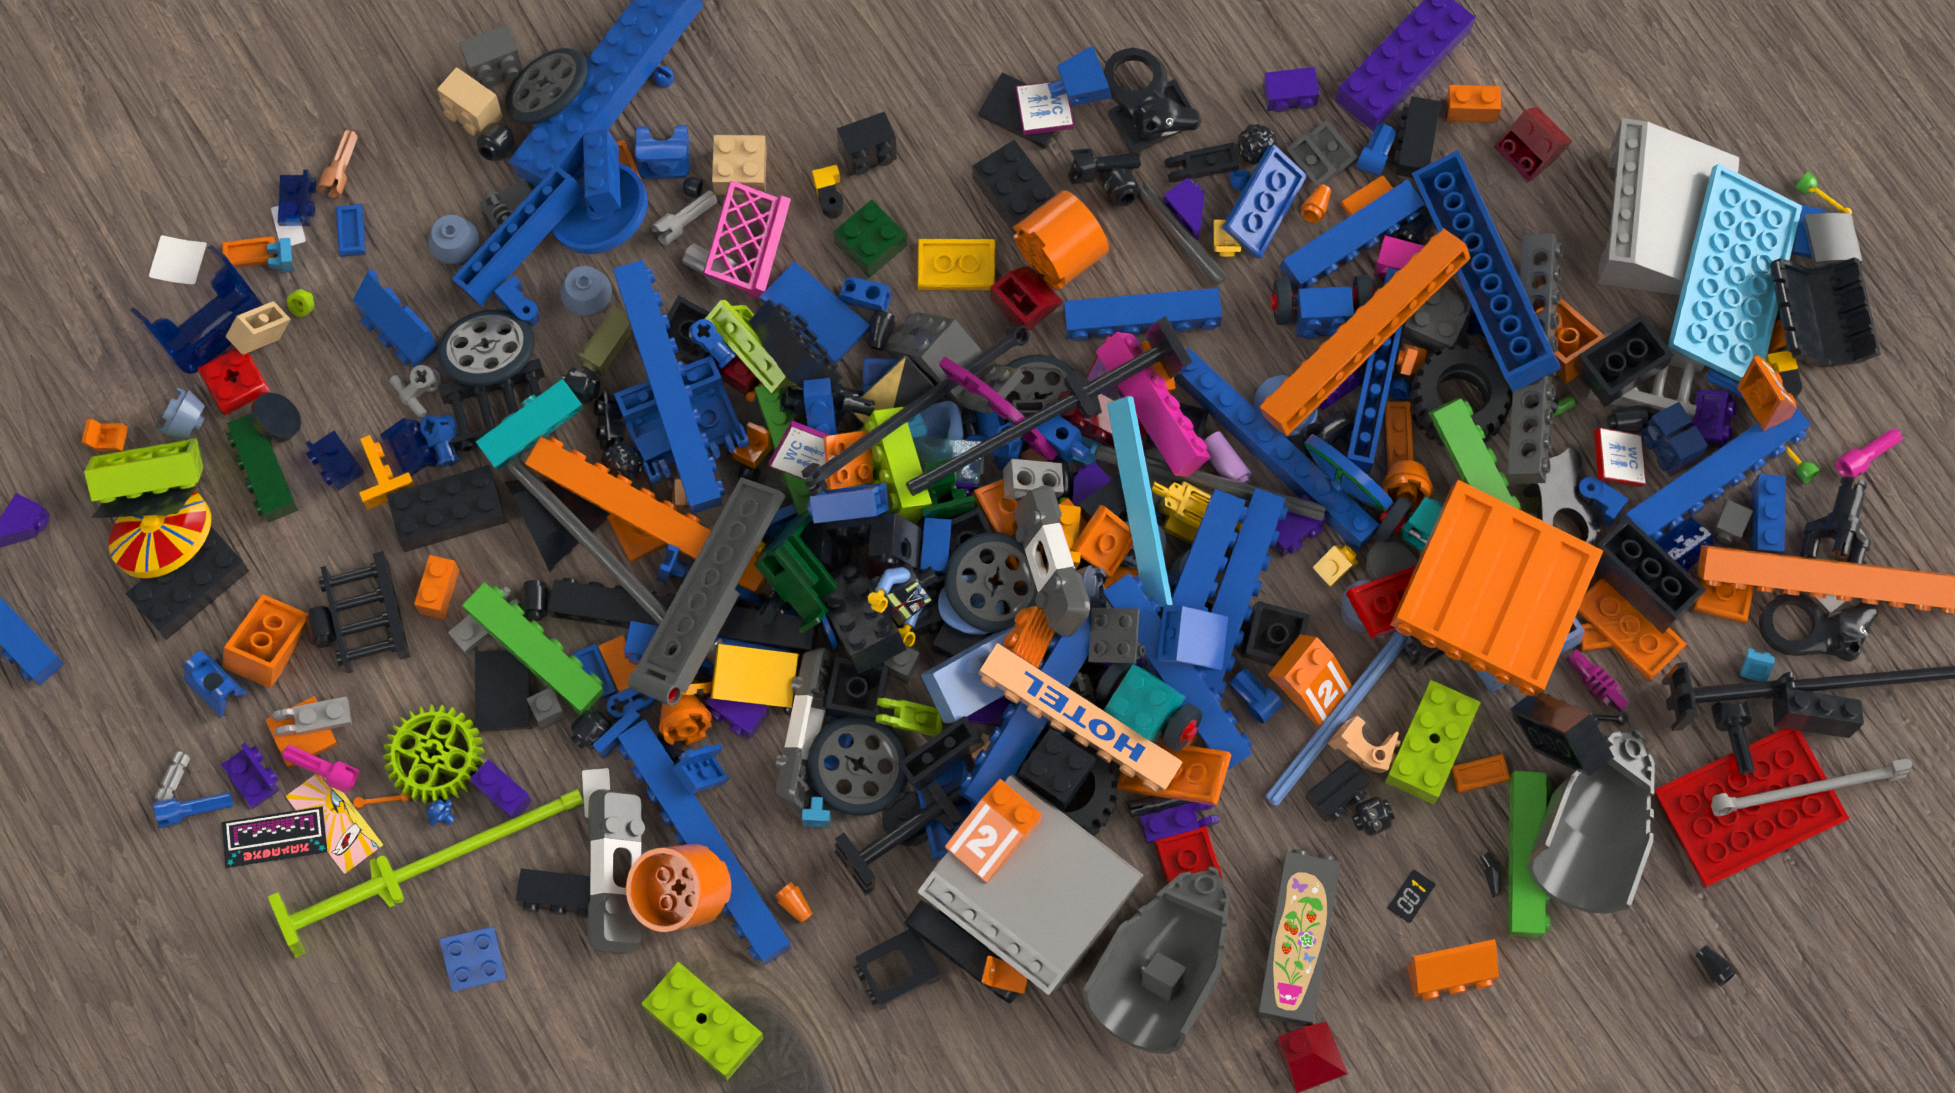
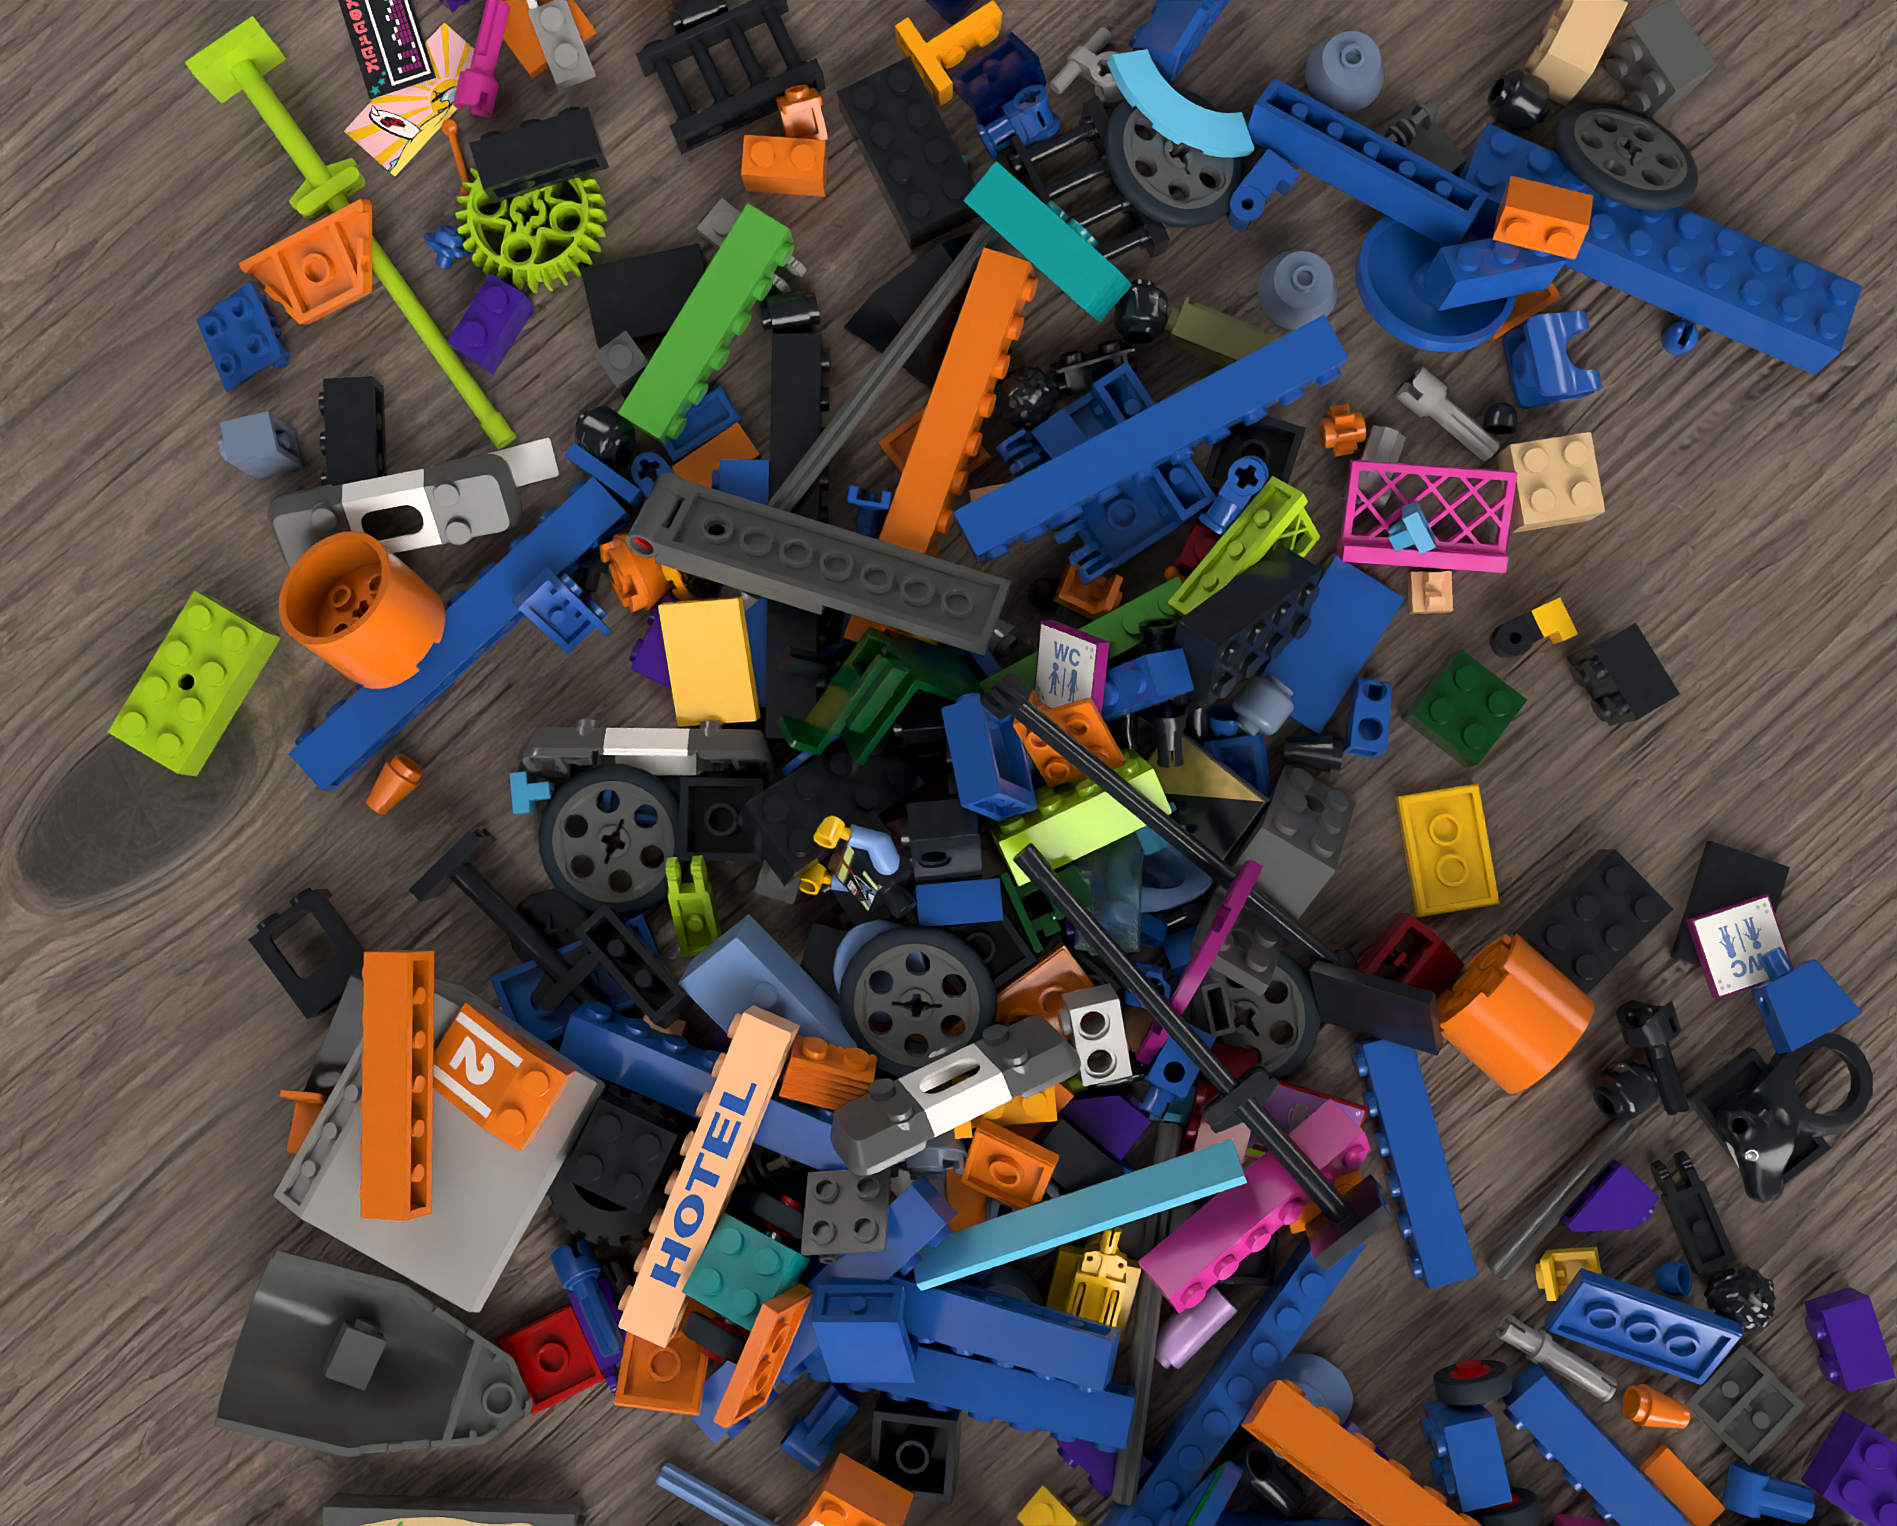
camera: 80 degrees right, 15 degrees up
(398, 732) = (538, 154): none -> black brick
(406, 570) = (802, 113): none -> orange bracket
(437, 895) = (319, 265): none -> orange wing
(461, 342) = (1174, 115): none -> medium azure tile
(552, 948) = (260, 445): none -> sand blue brick
(579, 136) = (1543, 217): none -> orange brick
(681, 279) = (1341, 430): none -> orange gear
(754, 246) = (1412, 530): none -> dark azure tile
(793, 246) = (1430, 592): none -> light nougat tile
(846, 351) = (1262, 705): none -> sand blue head
(851, 379) = (1222, 721): none -> blue hinge
(987, 889) = (397, 1084): none -> orange brick
(1043, 315) = (1377, 1006): none -> black tile
(1133, 828) = (579, 1273): none -> blue piece
(1194, 696) = (763, 1355): none -> orange tile
(1271, 261) = (1541, 1349): none -> light grey pin

